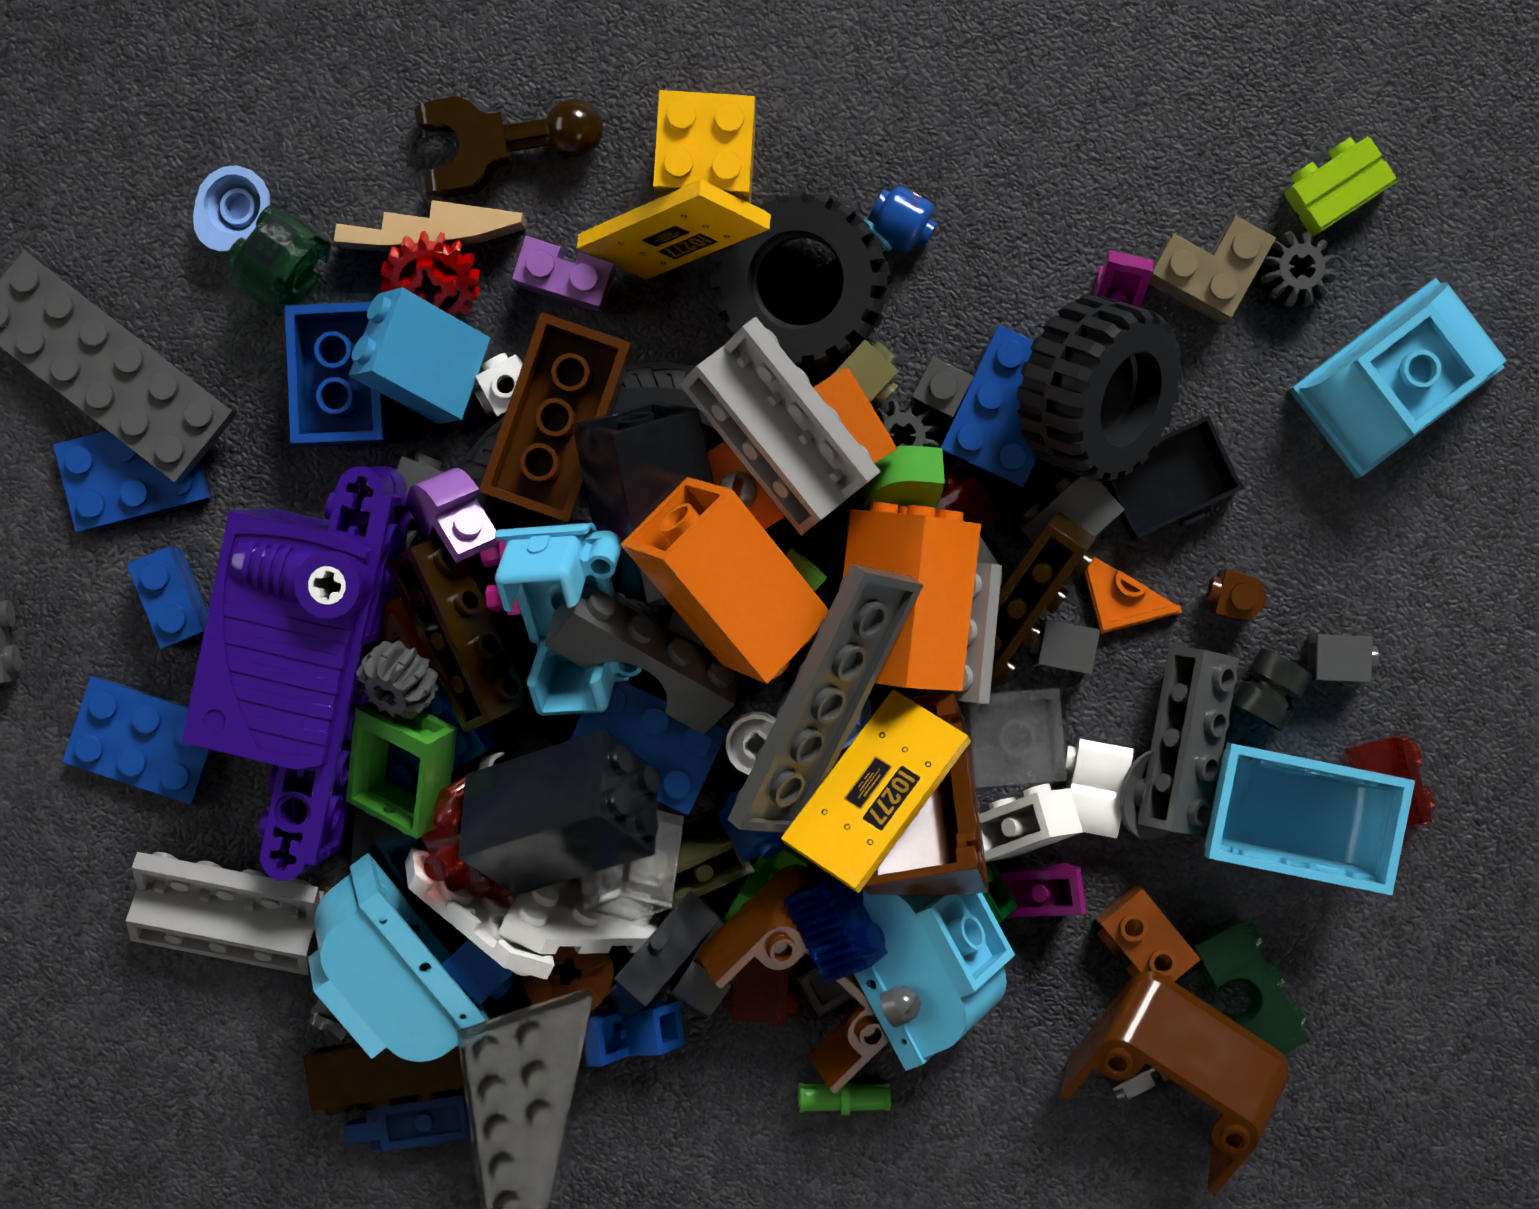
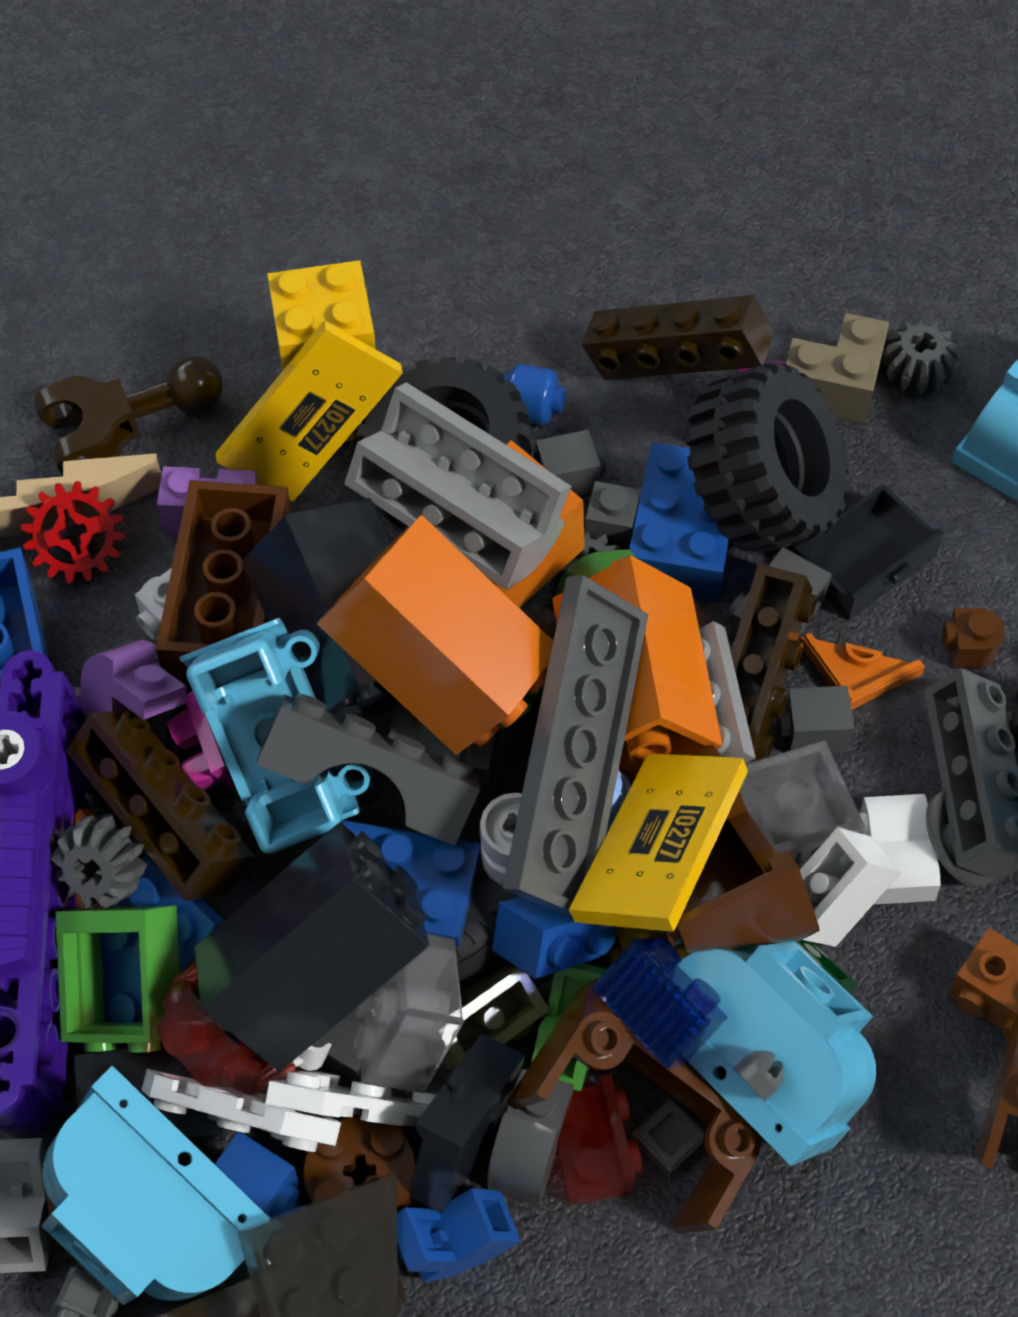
camera: 15 degrees left, 30 degrees down
(419, 355) = (71, 585): dark azure brick -> none
(849, 1098) = (728, 1258): bright green pin -> none
(918, 314) = (573, 460): none -> dark grey brick
(1046, 890) = (887, 958): magenta slope -> none
(1058, 213) = (678, 338): none -> dark brown brick
(1339, 186) = (932, 284): lime brick -> none

